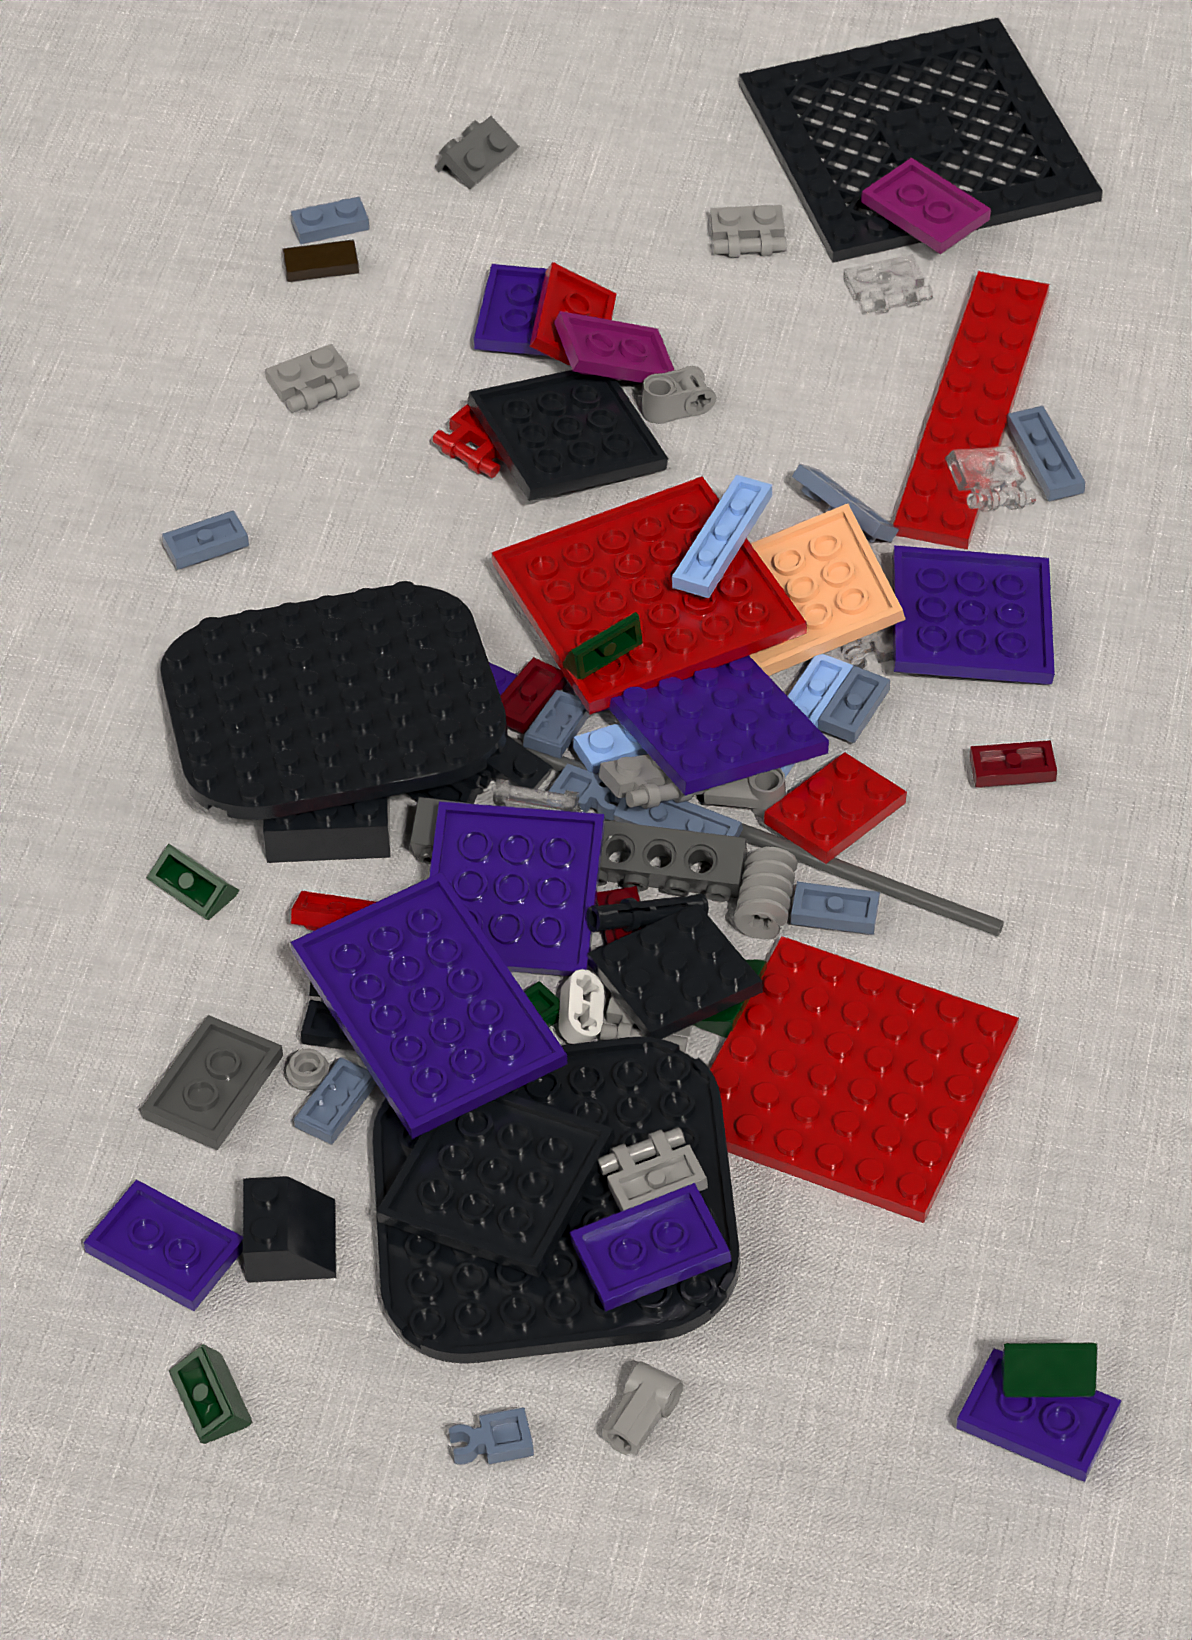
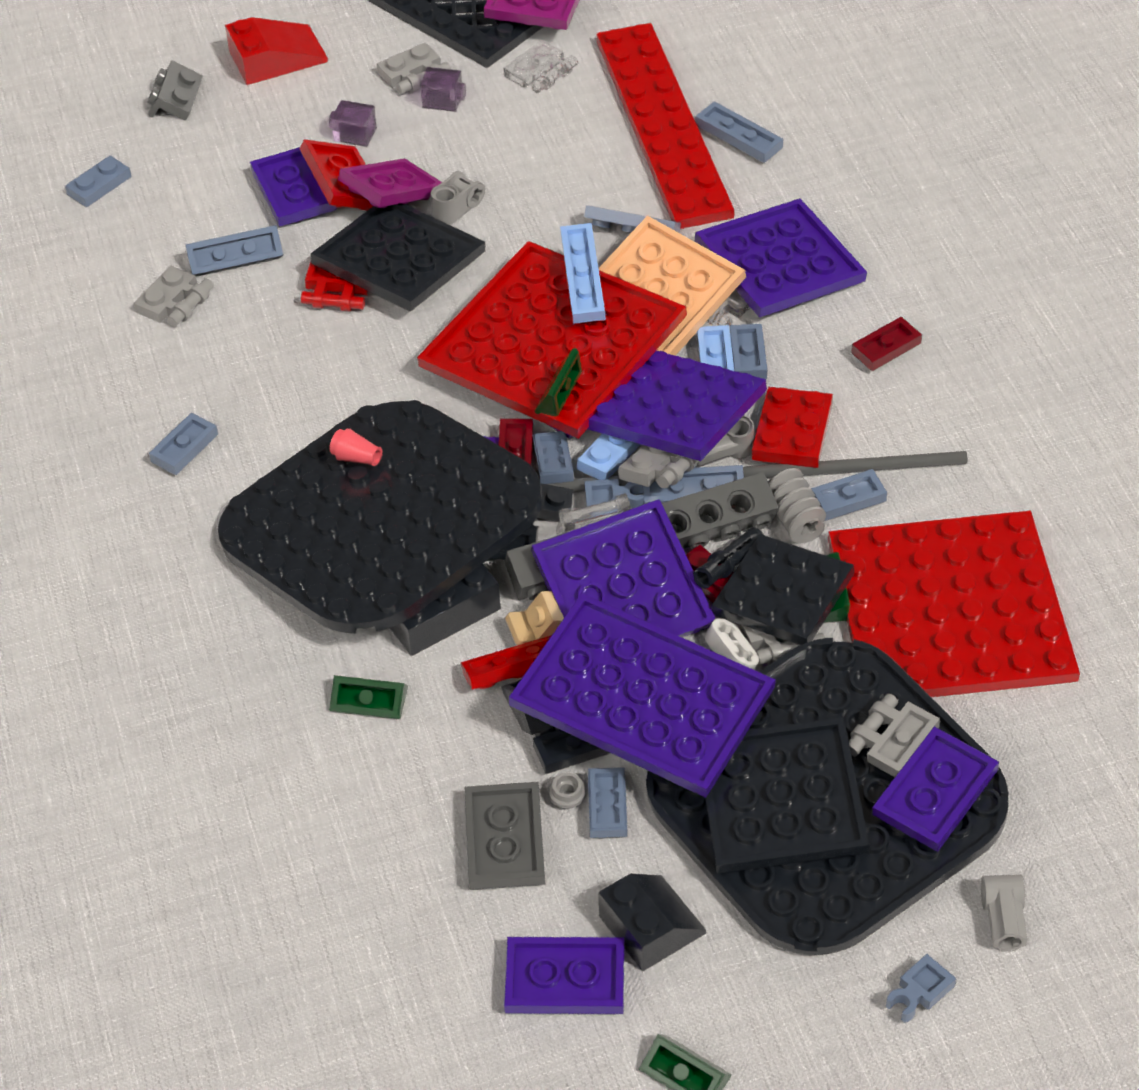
camera: 30 degrees left, 0 degrees up
(320, 260) = (113, 211): dark brown tile -> none
(348, 617) = (352, 447): none -> coral cone
(391, 879) = (537, 620): none -> tan bracket
(405, 355) = (234, 250): none -> sand blue plate
(614, 144) = (272, 48): none -> red slope
(633, 266) = (353, 123): none -> clear purple brick
(756, 266) = (442, 89): none -> clear purple brick
(988, 469) = (720, 160): clear plate -> none

